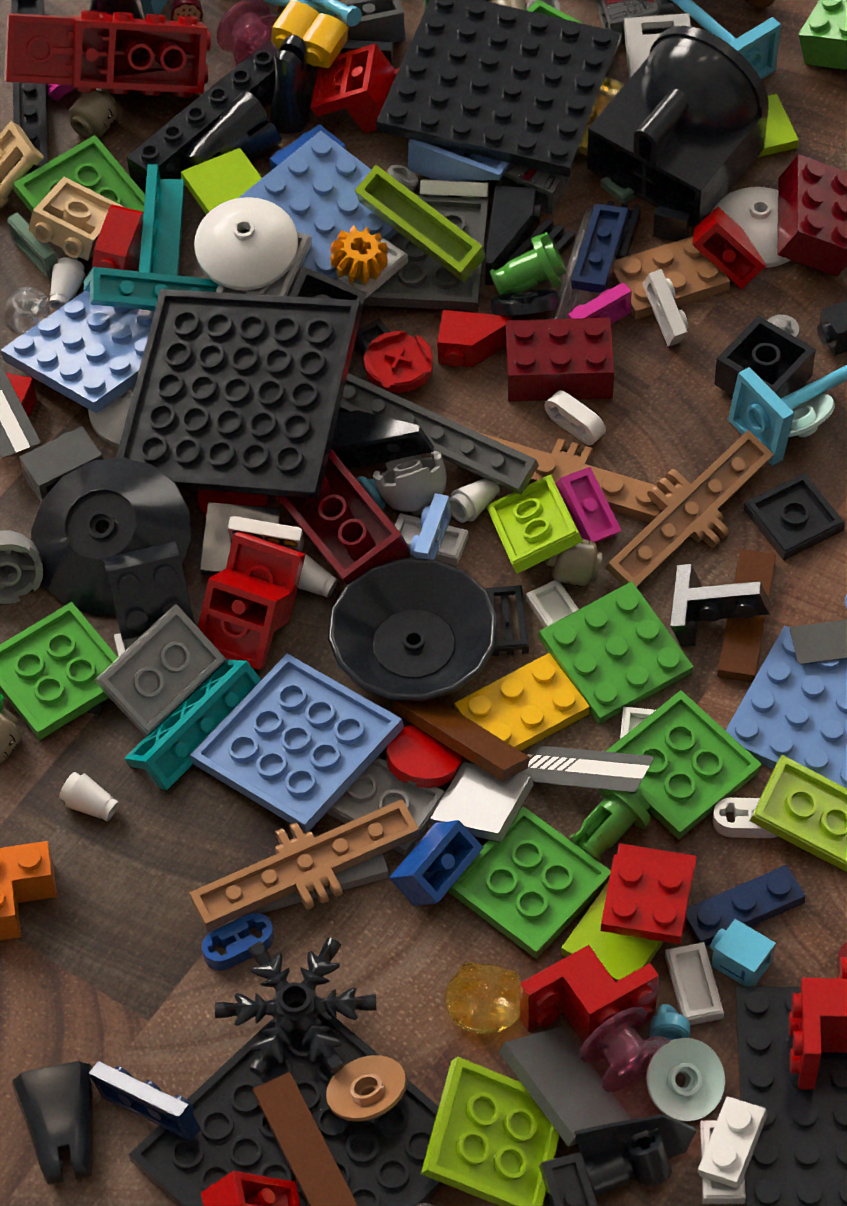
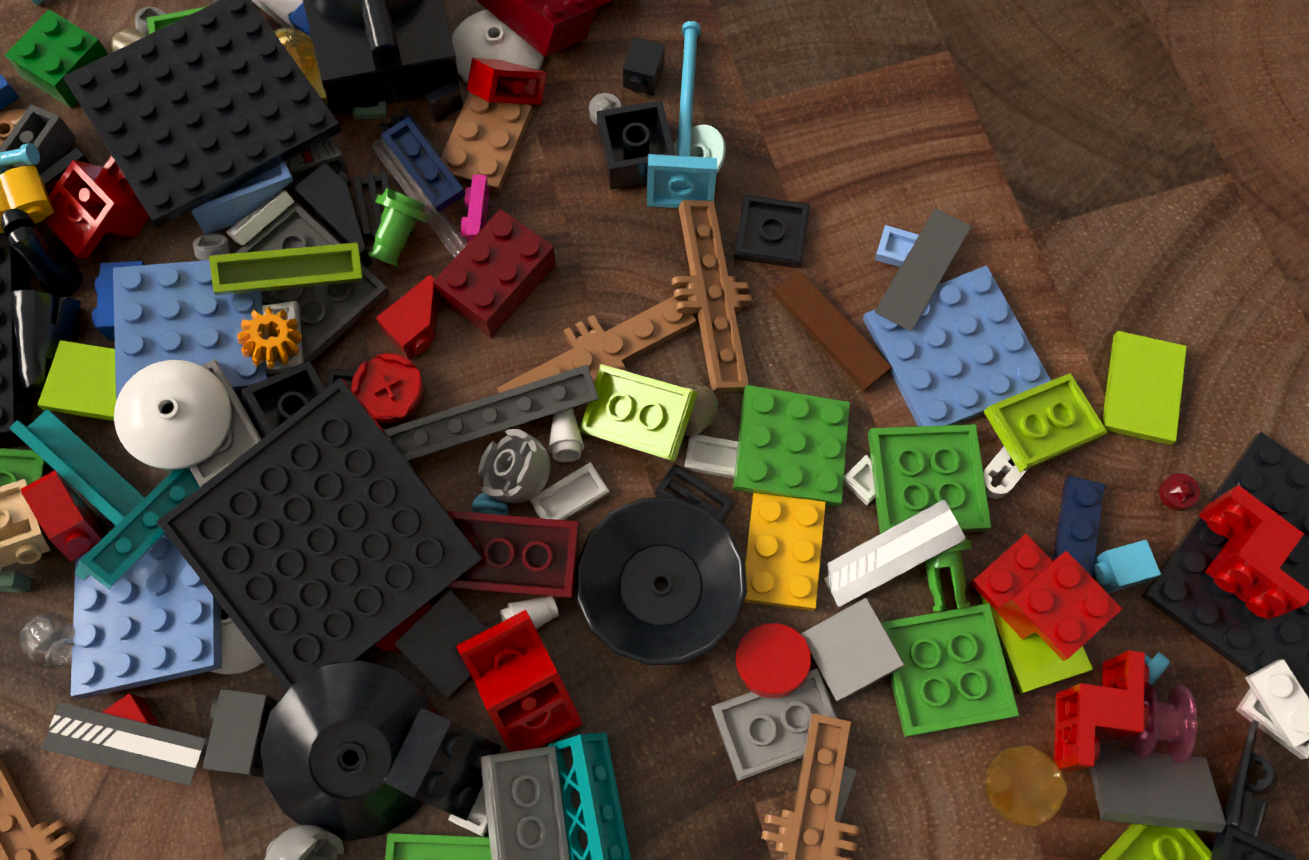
camera: 55 degrees left, 15 degrees up
(66, 281) = (50, 583): white cone -> none
(276, 533) = (471, 623): white tile -> none
(297, 742) = (684, 752): medium blue plate -> none
(372, 439) = (452, 465): black slope -> none
(434, 526) = (569, 481): light blue plate -> none
(436, 862) = (887, 731): blue brick -> none
(463, 736) = (793, 617): reddish brown tile -> none
(525, 303) = (425, 255): black tile -> none
(575, 417) = (557, 305): white beam -> none
(588, 506) = (649, 359): dark pink plate -> none
(661, 297) = (520, 165): white plate -> none
(694, 983) = (1132, 626): white tile -> none
(703, 1079) = (1211, 692): light aqua dish -> none
(711, 603) = (814, 346): black bracket -> none

